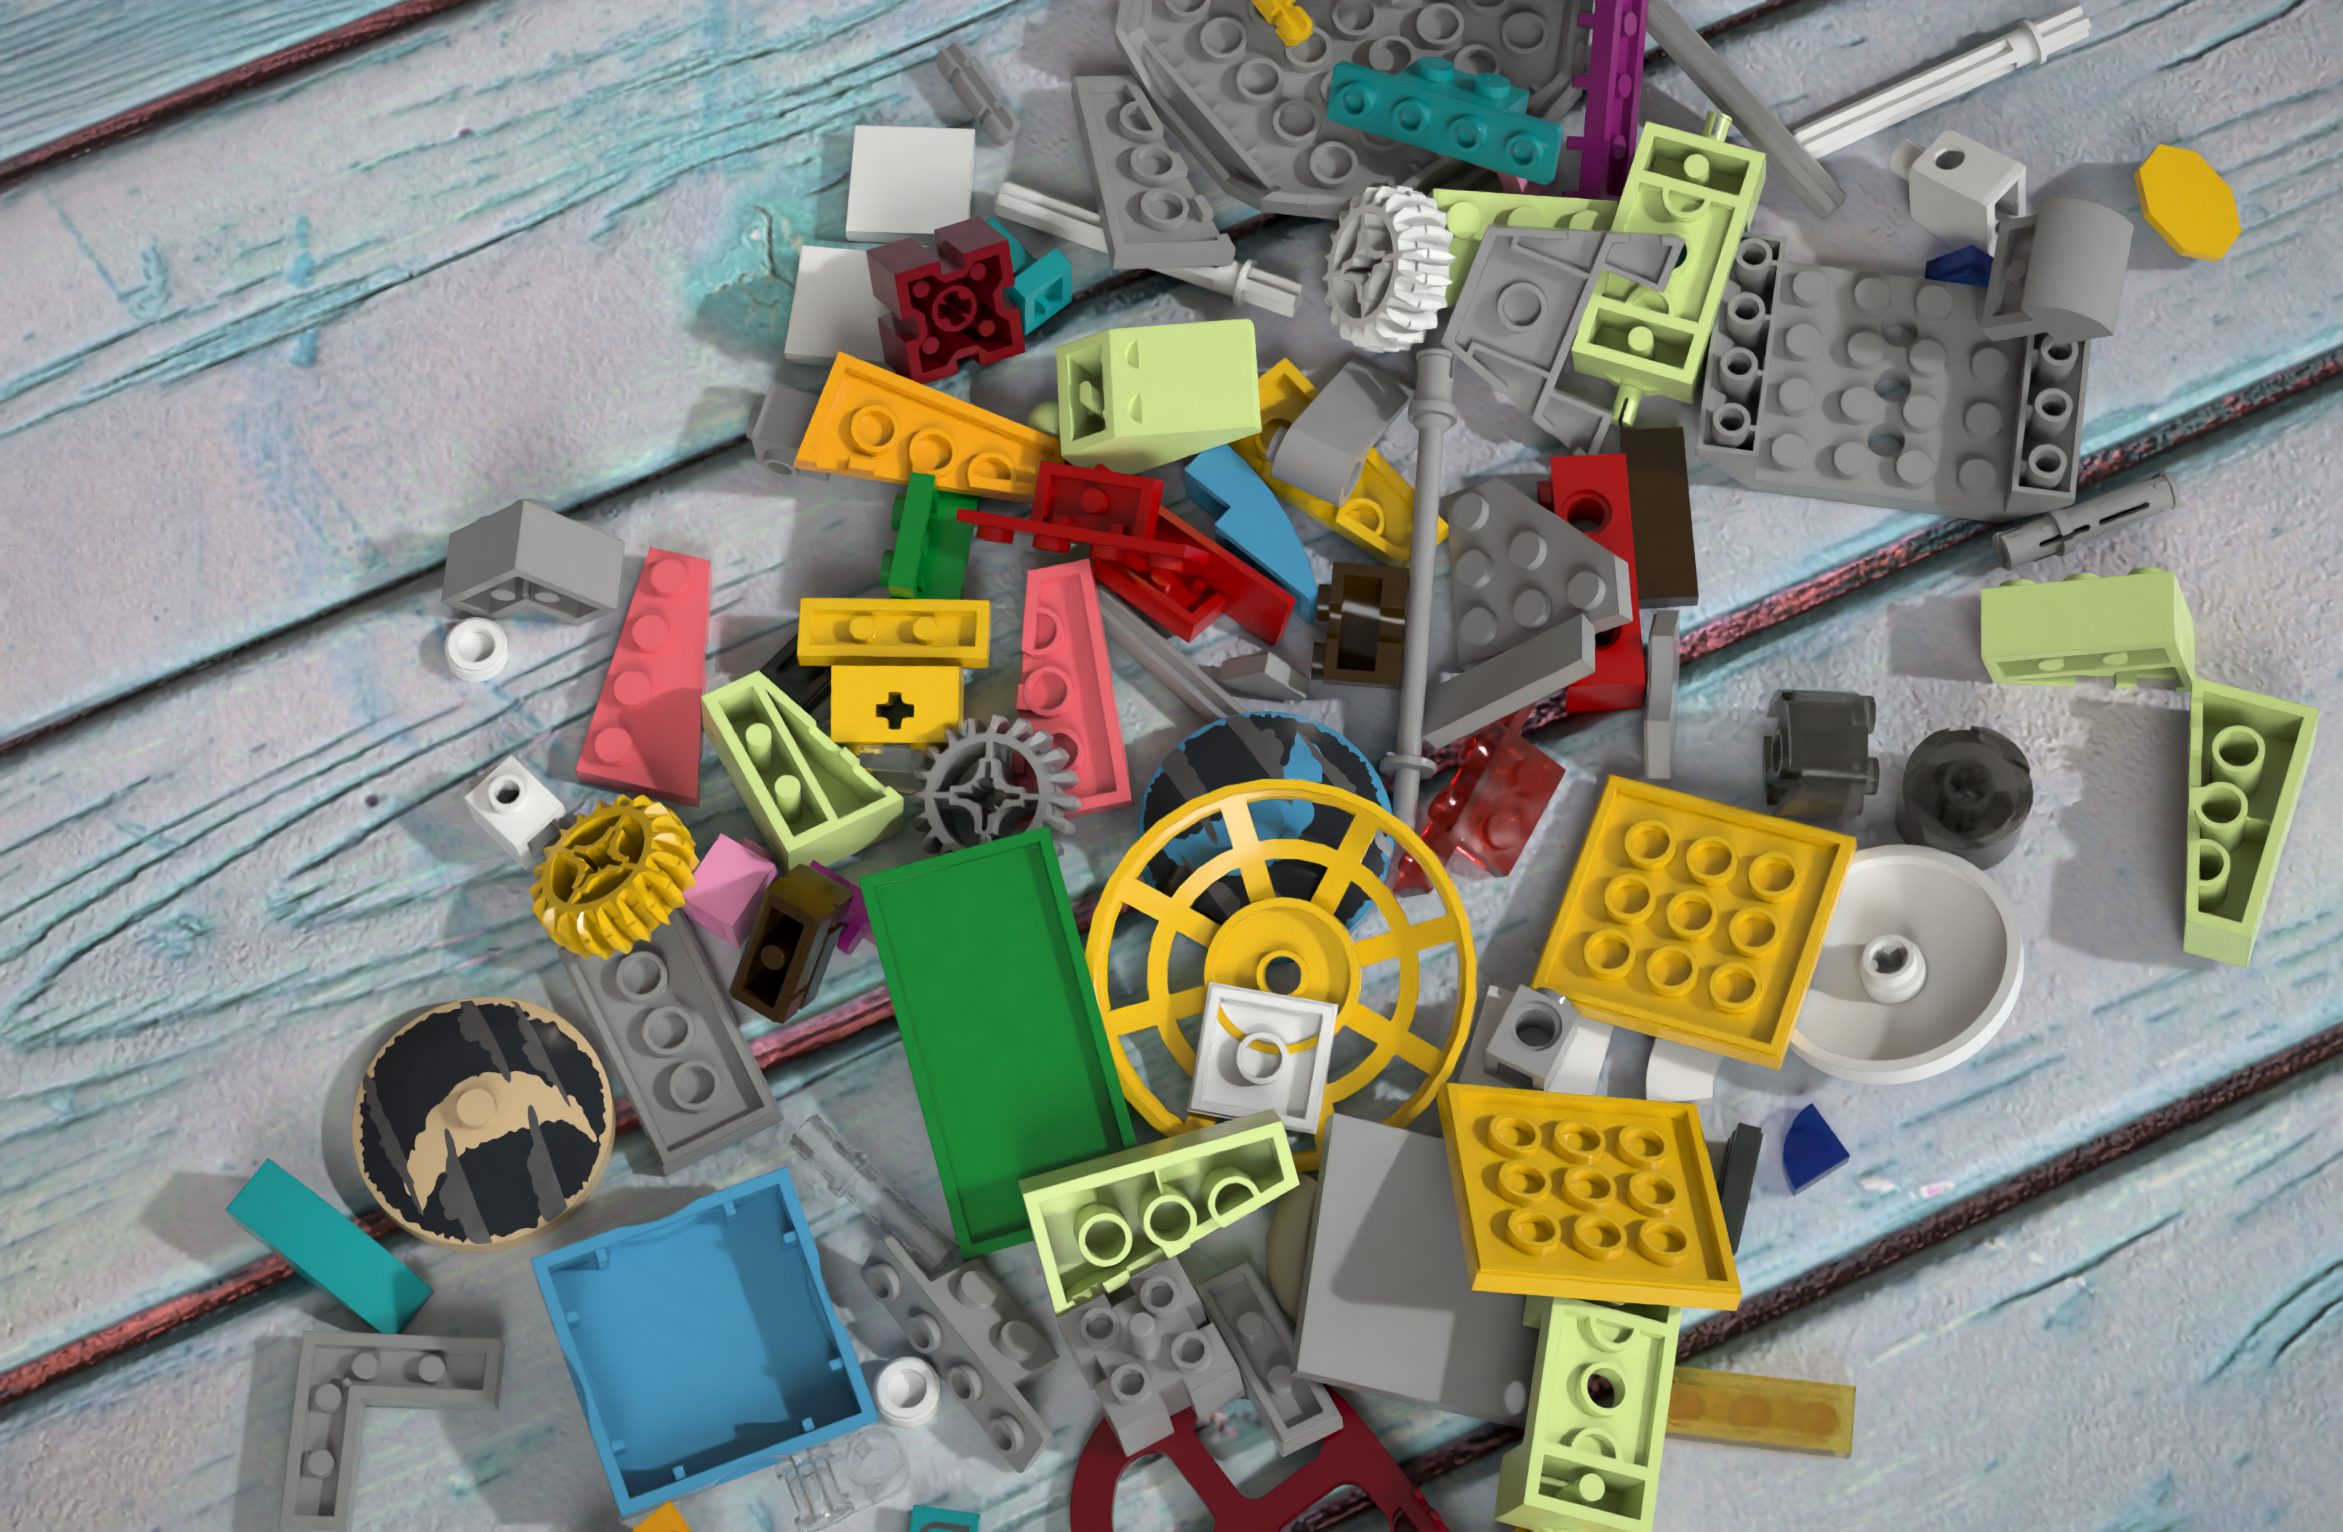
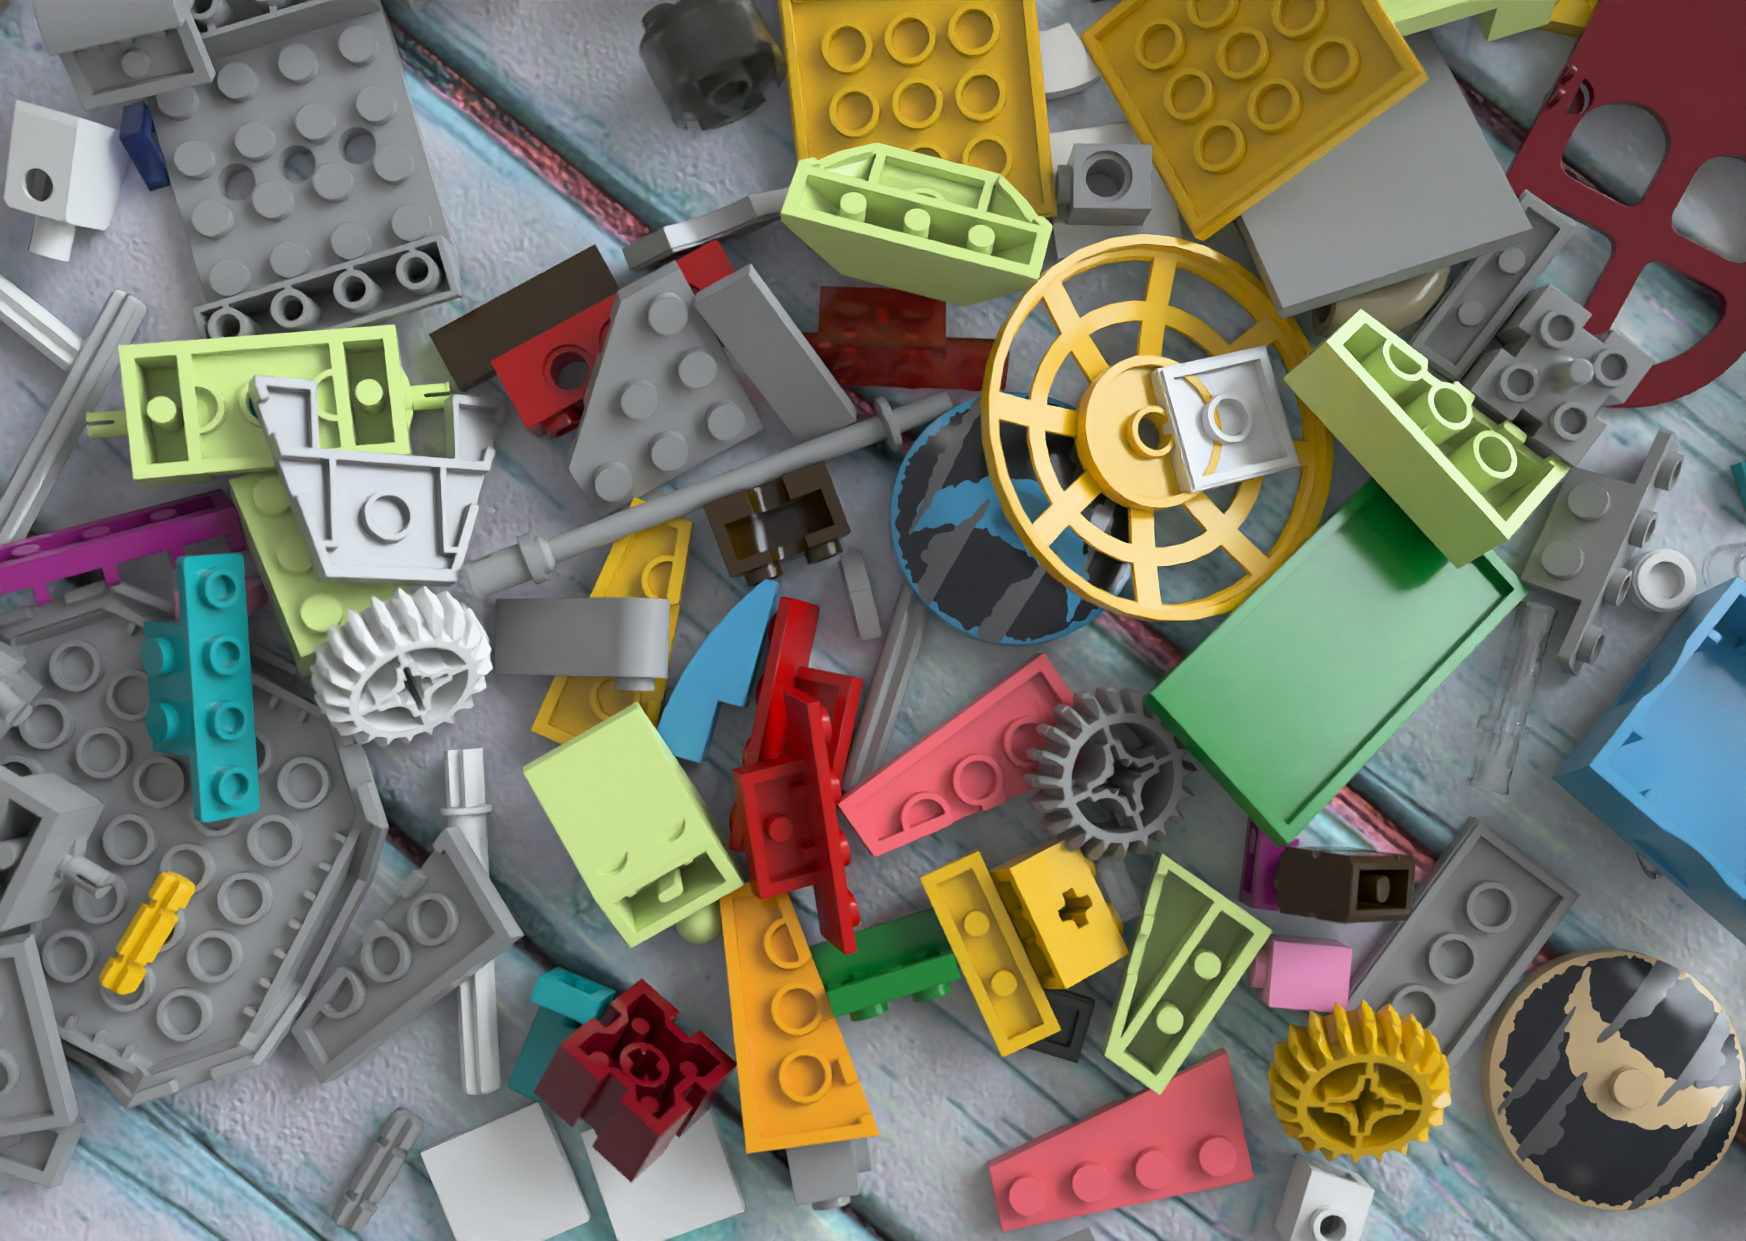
camera: 120 degrees left, 20 degrees up
(1580, 850) = (917, 223): none -> yellowish green wedge

